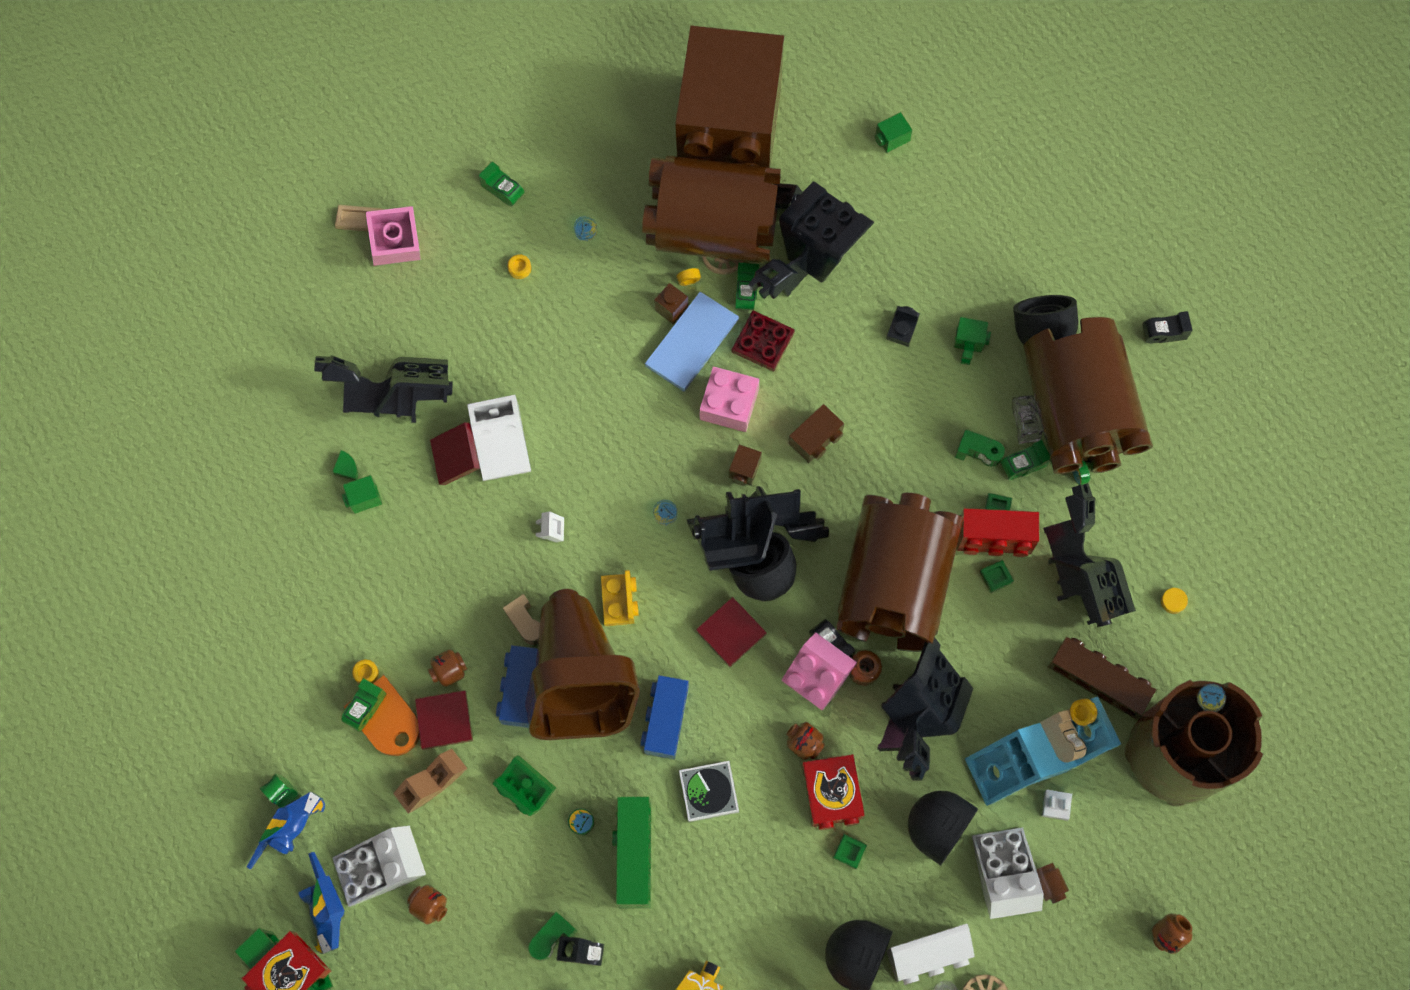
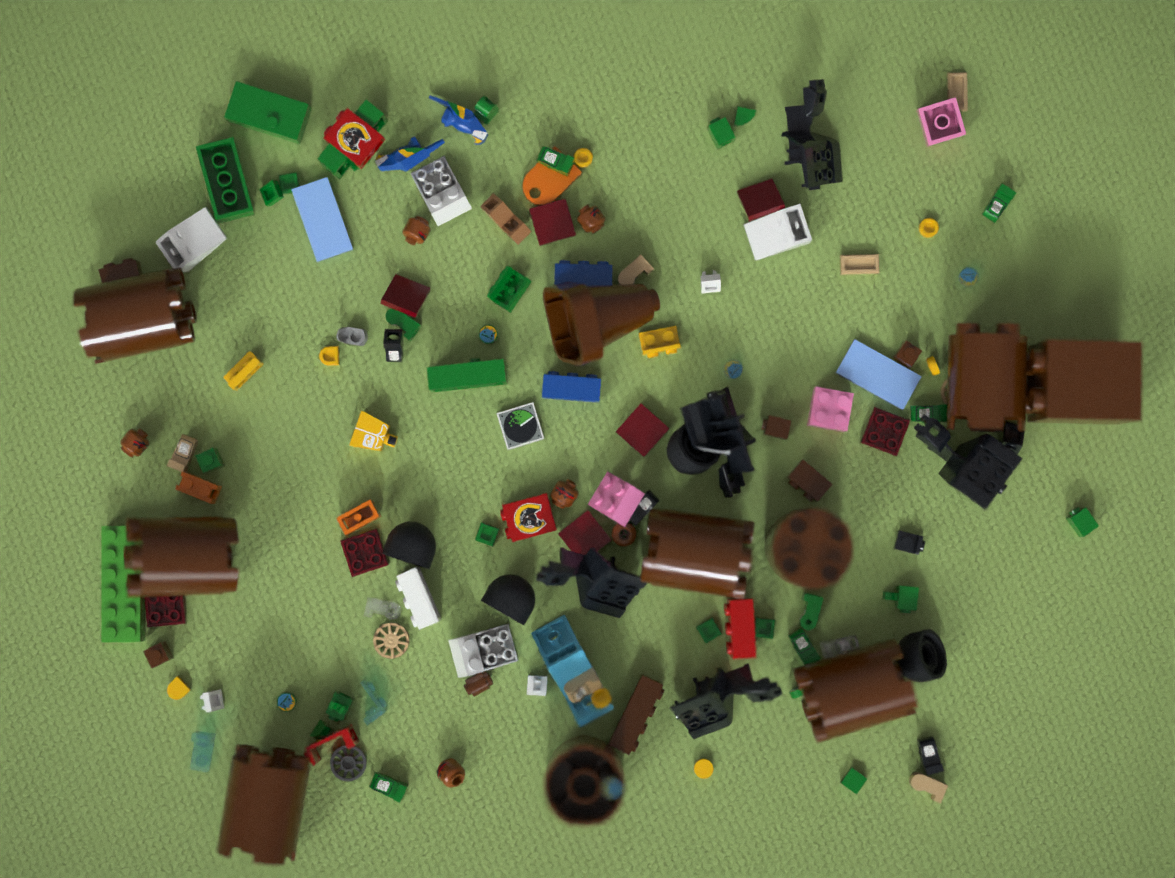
camera: 85 degrees right, 15 degrees up
(514, 928) = (405, 295): none -> dark red tile
(553, 349) = (859, 264): none -> tan tile
(861, 720) = (584, 534): none -> dark red tile
(905, 429) = (809, 548): none -> reddish brown brick
(1194, 420) = (853, 780): none -> green tile
(1201, 336) = (923, 782): none -> tan leg

